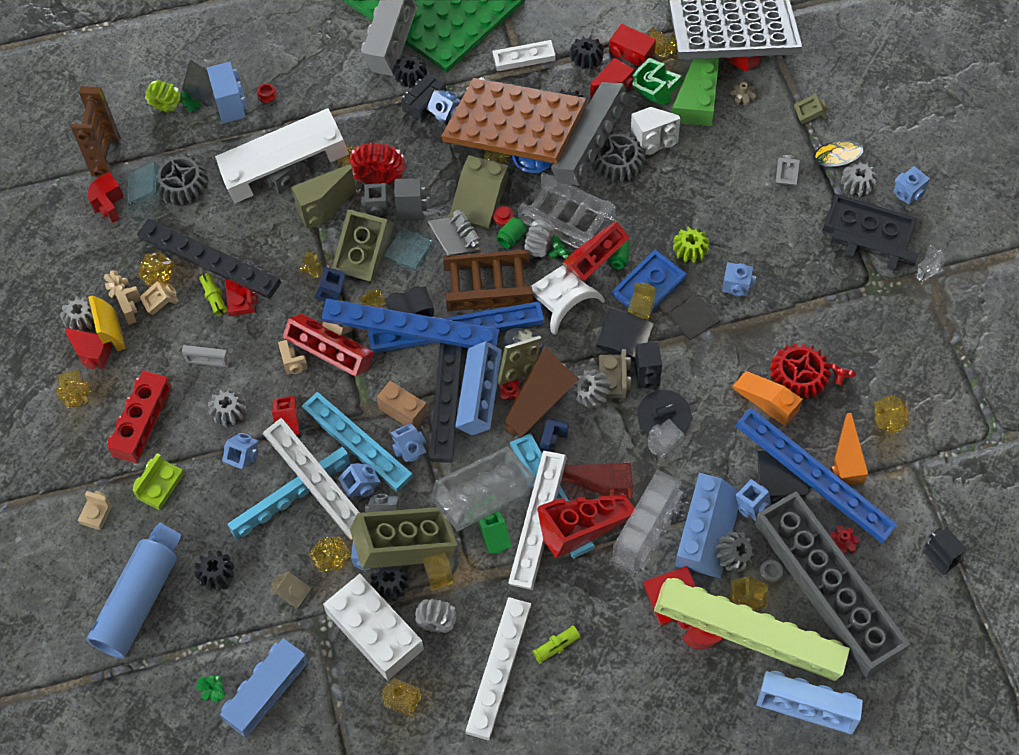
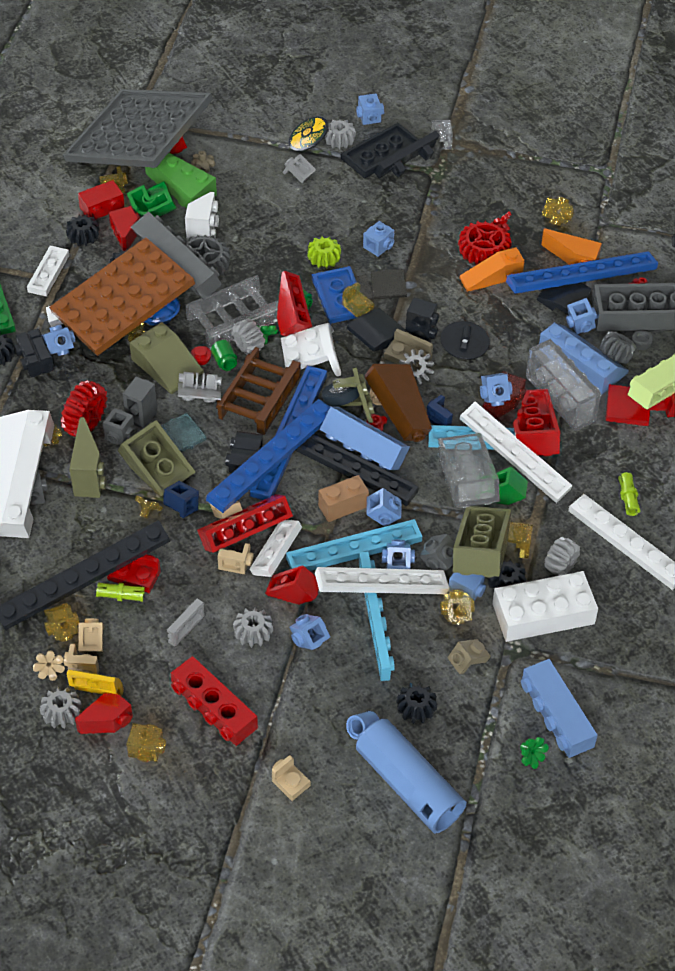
camera: 65 degrees left, 10 degrees down
(157, 482) = (294, 715): lime bracket -> none
(319, 382) = (275, 548): none -> white plate
(372, 298) = (219, 475): clear yellow plant -> none
(401, 697) = (621, 614): clear yellow brick -> none
(590, 464) = (488, 389): none -> medium blue brick
(664, 438) = (491, 344): clear brick -> none
(749, 592) = (656, 353): clear yellow brick -> none
(811, 108) = (253, 130): olive bracket -> none

